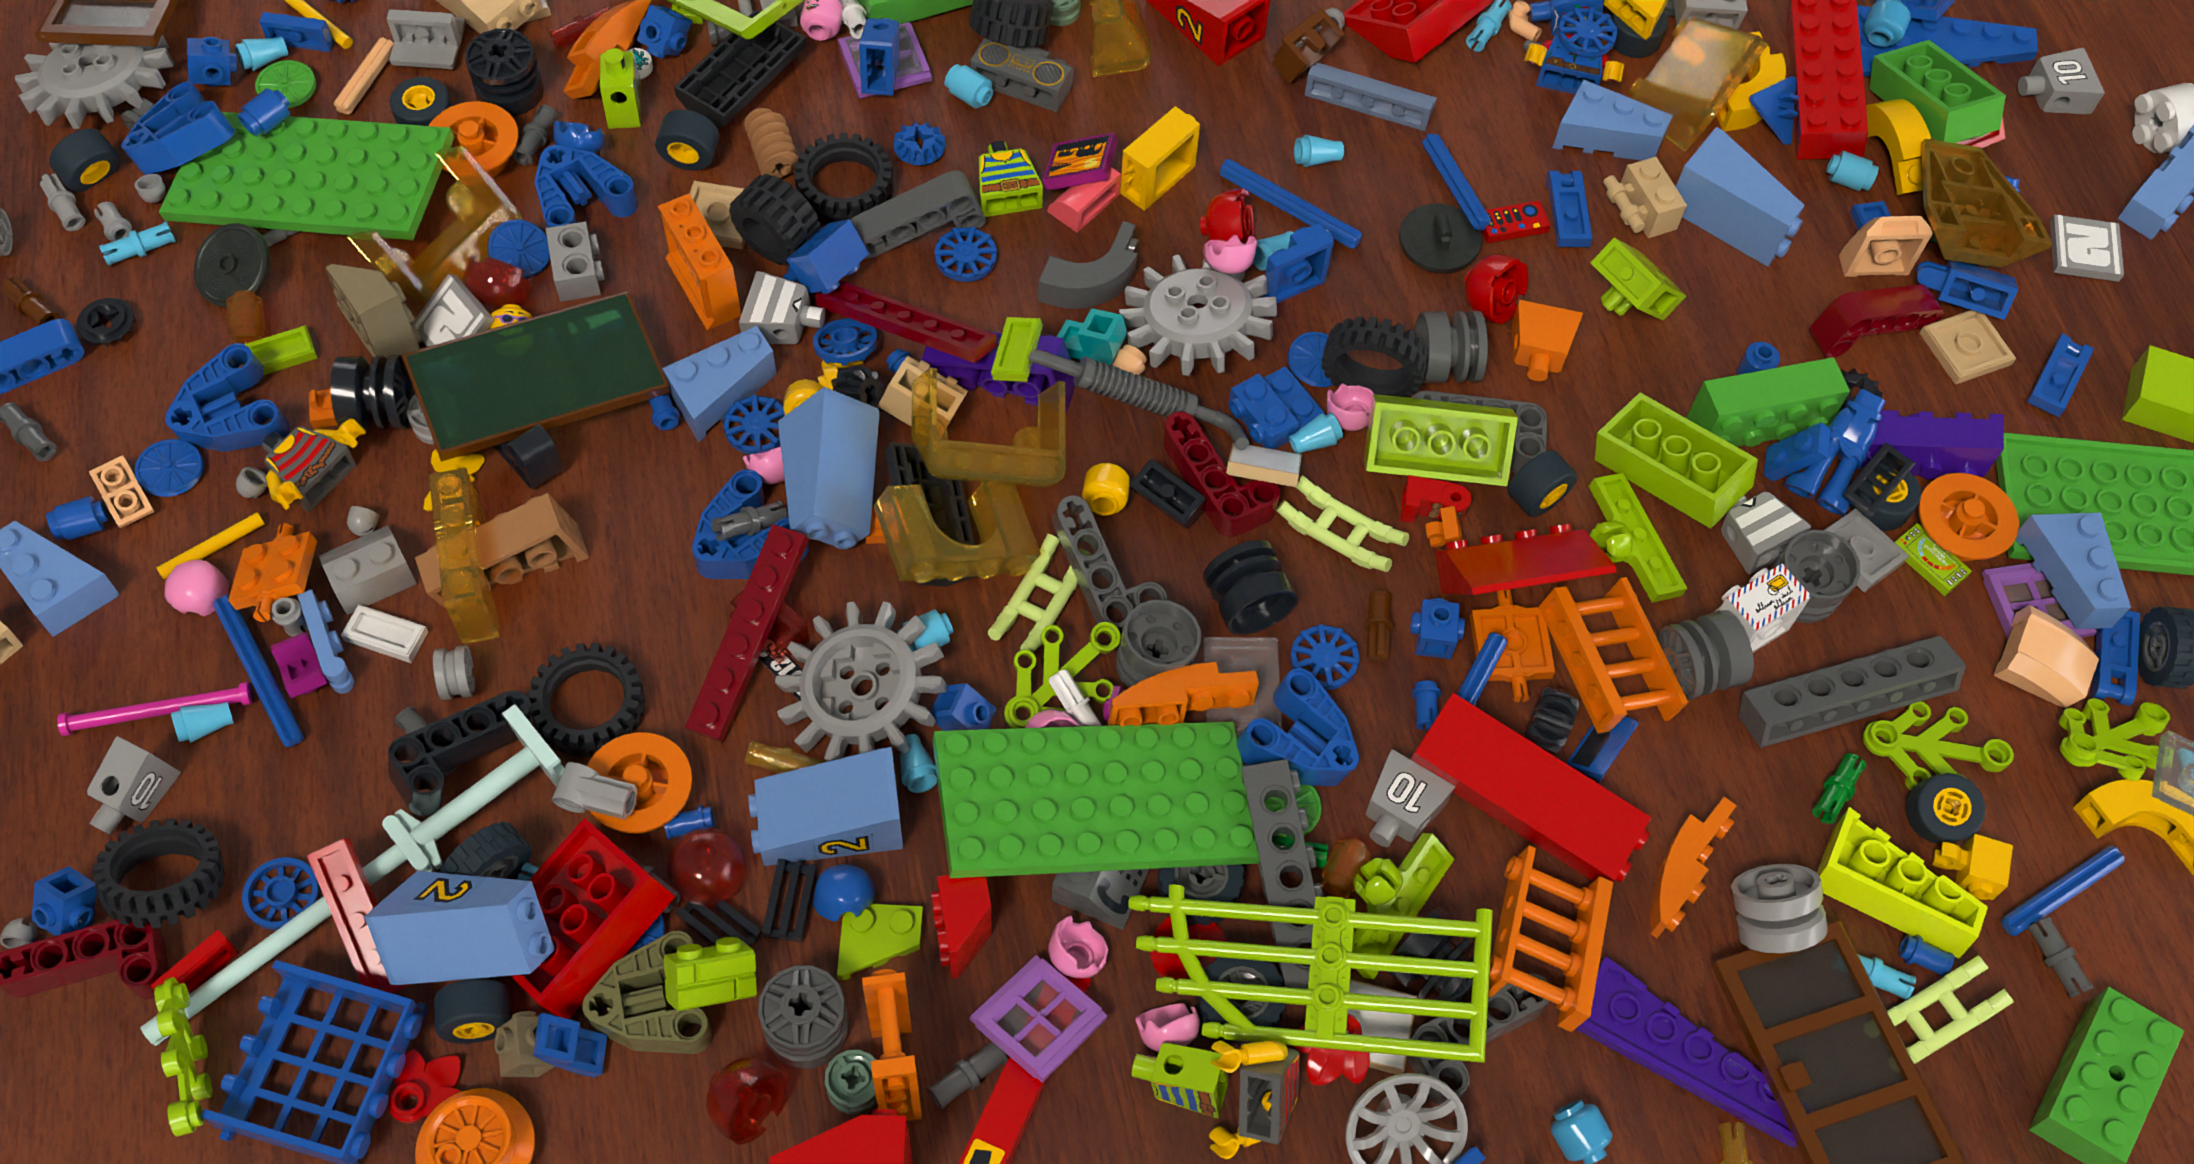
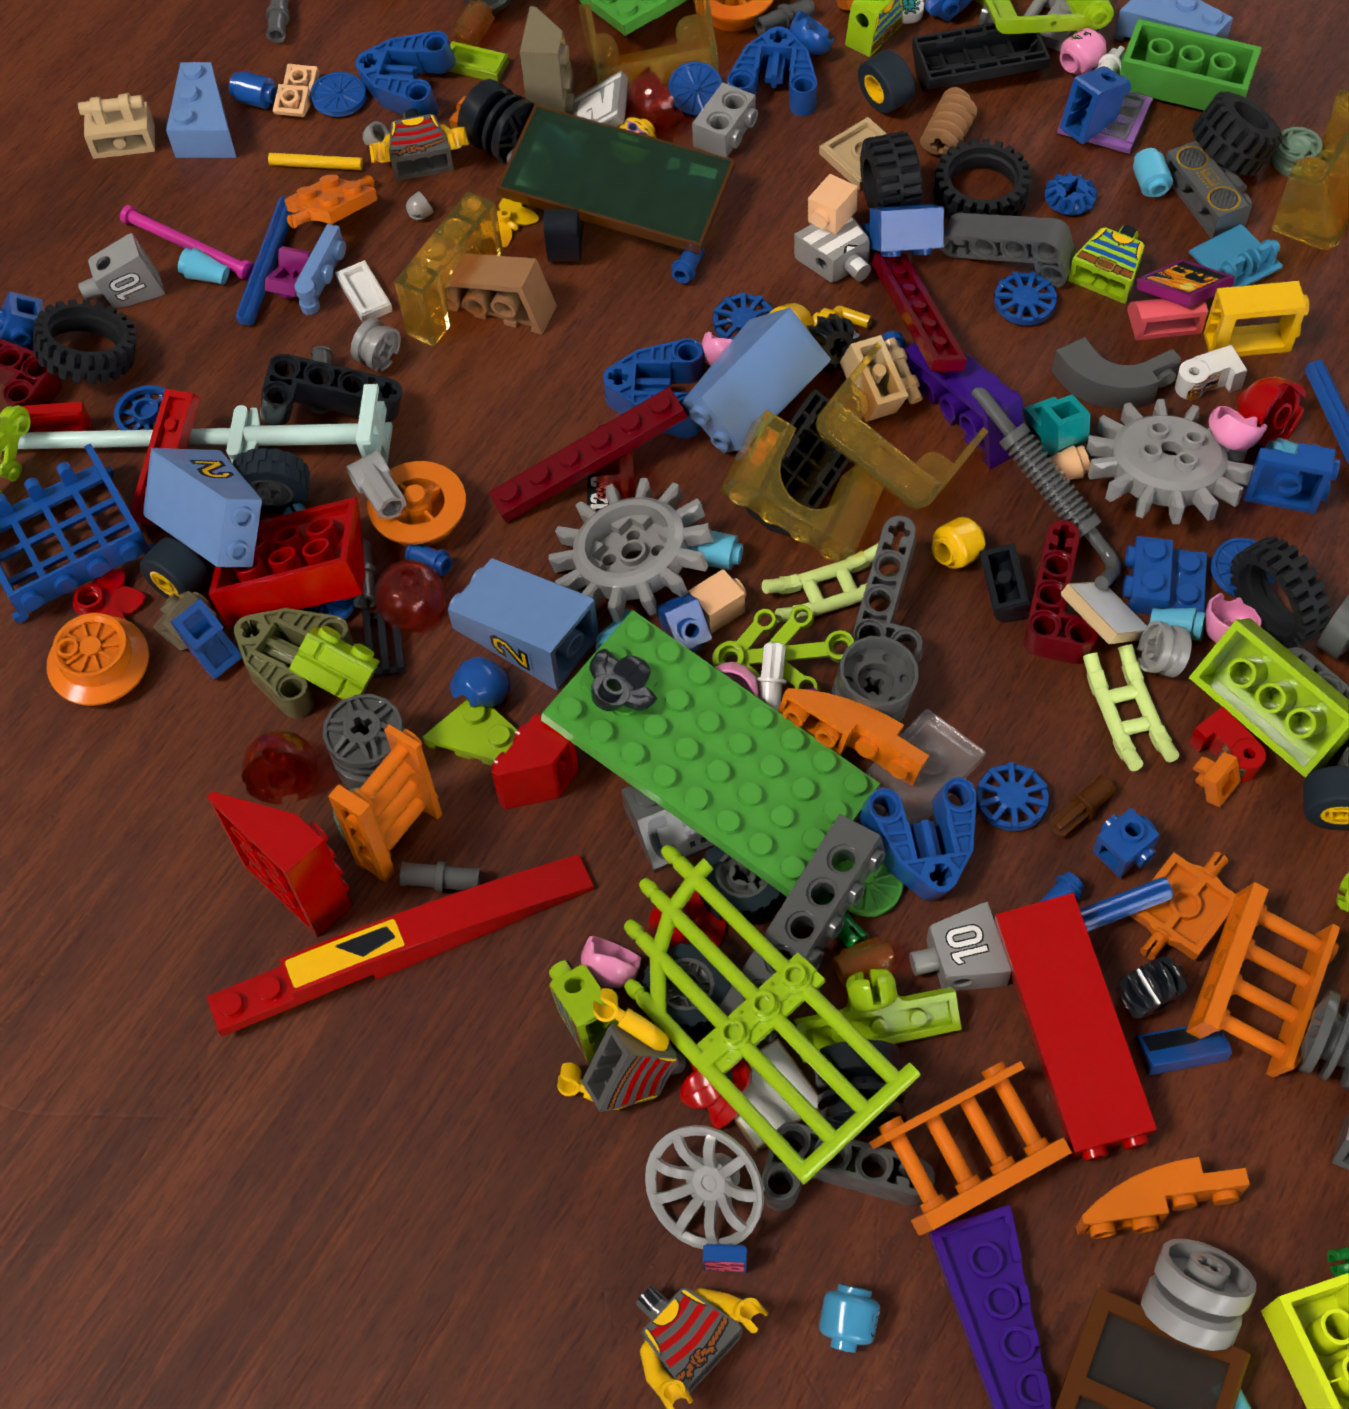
camera: 50 degrees right, 0 degrees up
(195, 587) = (278, 179): bright pink hair -> none
(289, 614) = (310, 231): light grey pin -> none
(367, 569) = (388, 240): light grey slope -> none
(581, 661) = (440, 395): black tyre -> none
(699, 262) = (807, 154): orange window -> none
(718, 376) = (746, 264): medium blue wedge -> none
(748, 520) = (660, 376): dark grey pin -> none
(753, 275) = (832, 204): none -> light nougat brick
(777, 759) = (526, 557): clear yellow pin -> none
(794, 870) = (437, 660): black tile -> none
(845, 340) = (864, 301): blue wheel -> none
(969, 665) = (720, 599): none -> light nougat brick
(991, 796) = (620, 682): none -> black plate
(1016, 343) = (988, 374): lime tile -> none
(1038, 1018) = (522, 877): medium lavender piece -> none
(1077, 949) = (600, 853): bright pink hair -> none
(1092, 113) = (1239, 255): none -> dark azure hinge
(1158, 221) = (1210, 372): none -> white leg
(1250, 587) = (994, 694): black wheel -> none
(1329, 461) = (1164, 649): none -> light grey wheel
(1520, 561) = (1249, 841): red slope -> none

